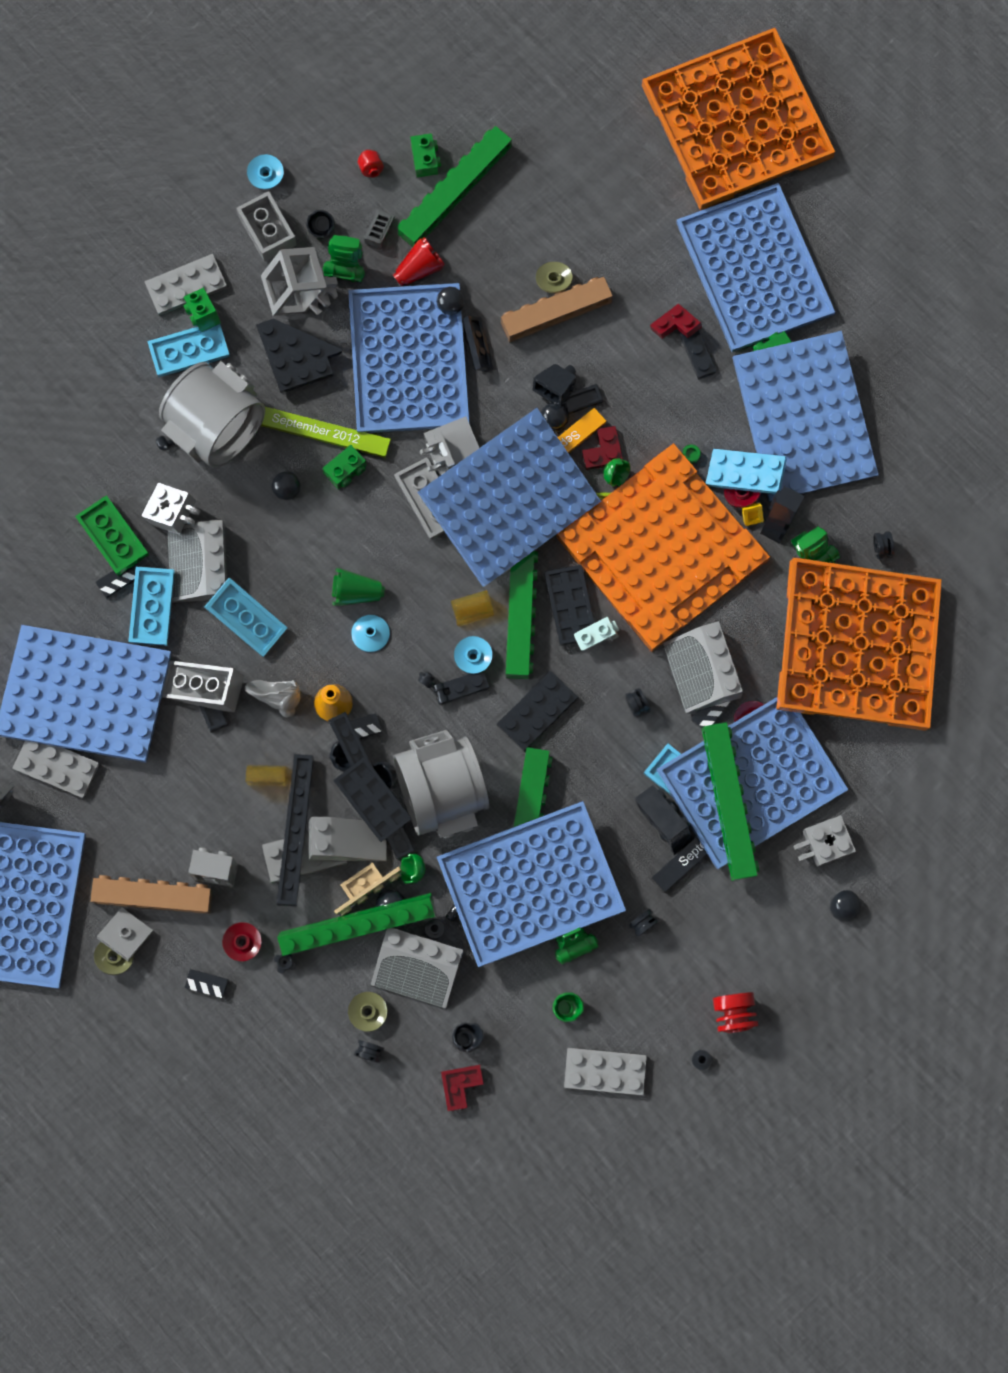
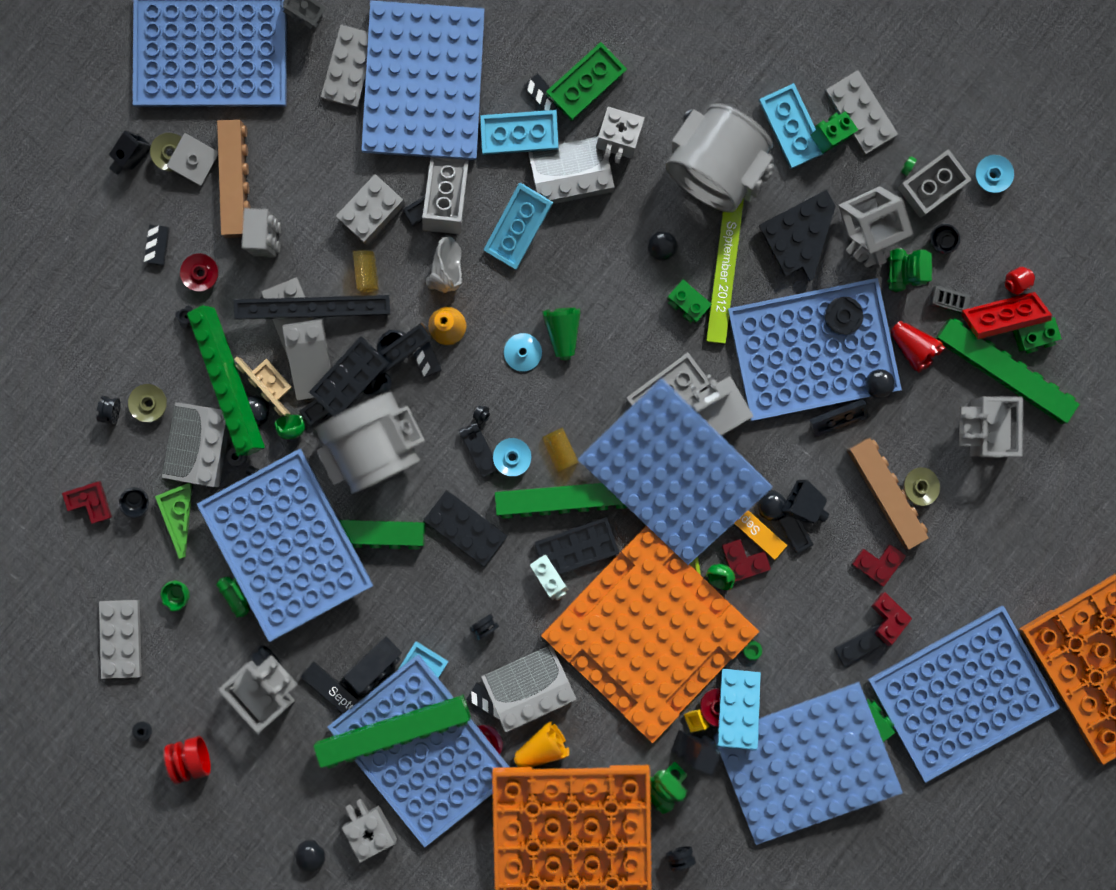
camera: 85 degrees right, 10 degrees up
(101, 991) = (128, 151): none -> black torso
(205, 760) = (370, 209): none -> light grey brick
(244, 248) = (908, 165): none -> green tile
(380, 325) = (844, 315): none -> black tile
(402, 178) = (1006, 315): none -> red plate
(481, 997) = (176, 511): none -> bright green wing
(506, 210) = (988, 426): none -> light grey piece
(627, 326) = (882, 568): none -> dark red plate
(674, 926) = (261, 690): none -> light grey piece
(763, 662) = (542, 748): none -> light orange cone

